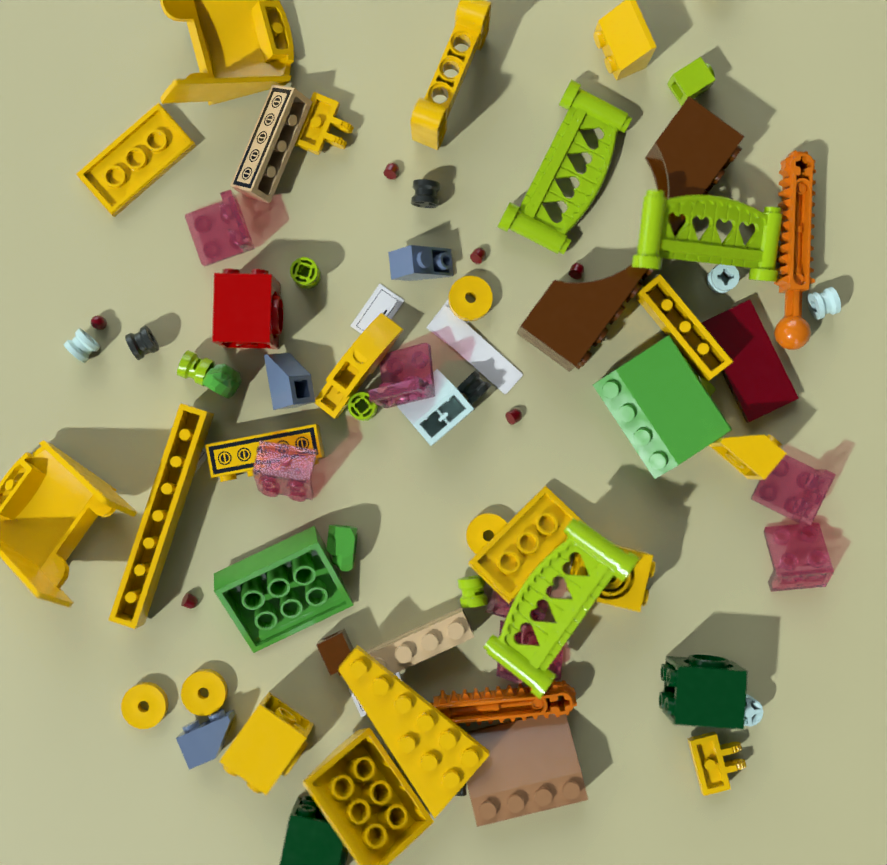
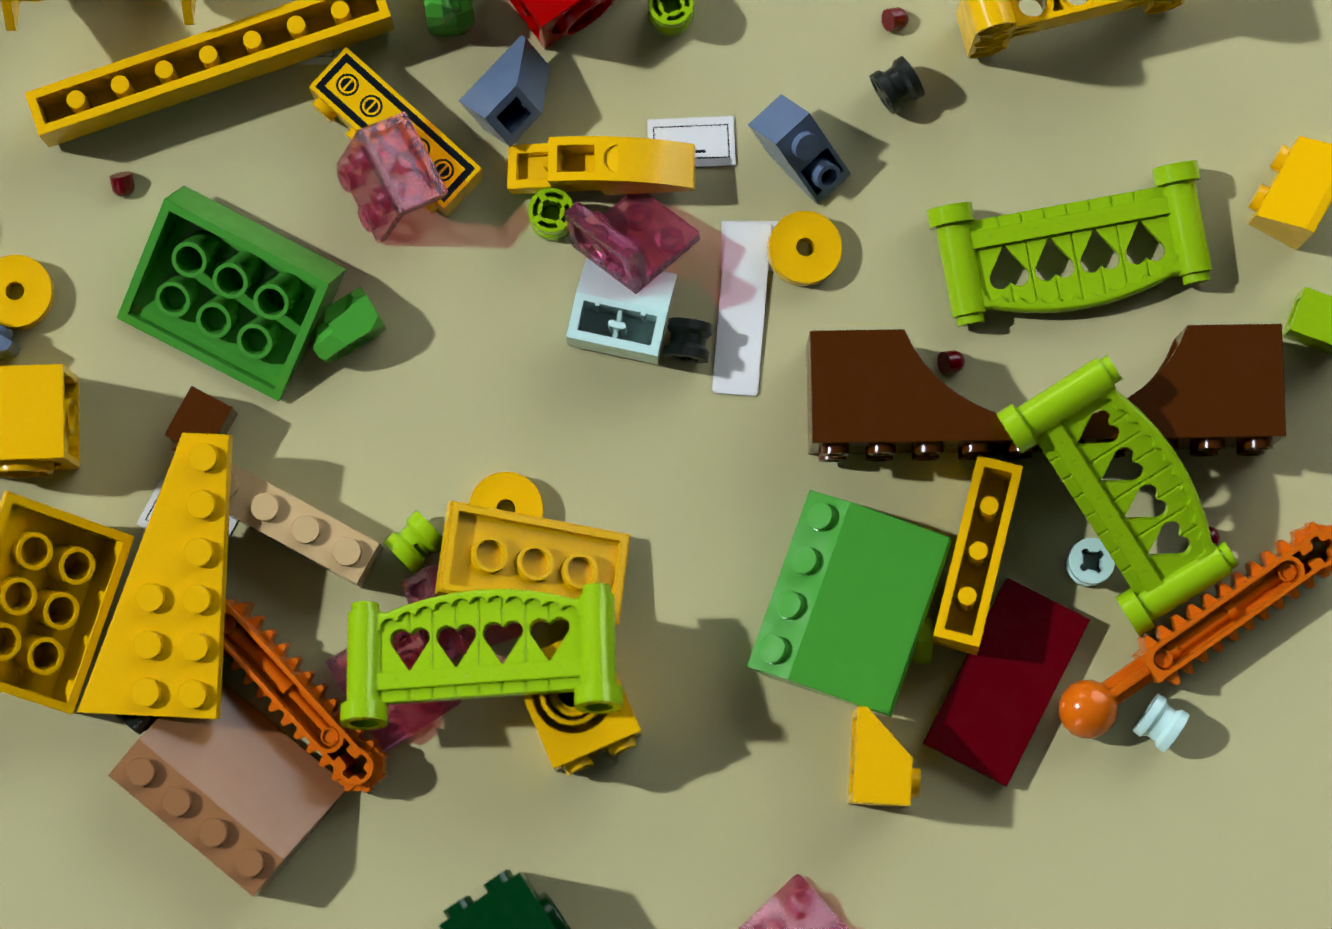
camera: 50 degrees right, 5 degrees down
(478, 255) = (870, 216): dark red piece -> none
(513, 416) = (691, 424): dark red piece -> none
(794, 490) = (877, 862): clear pink bracket -> none

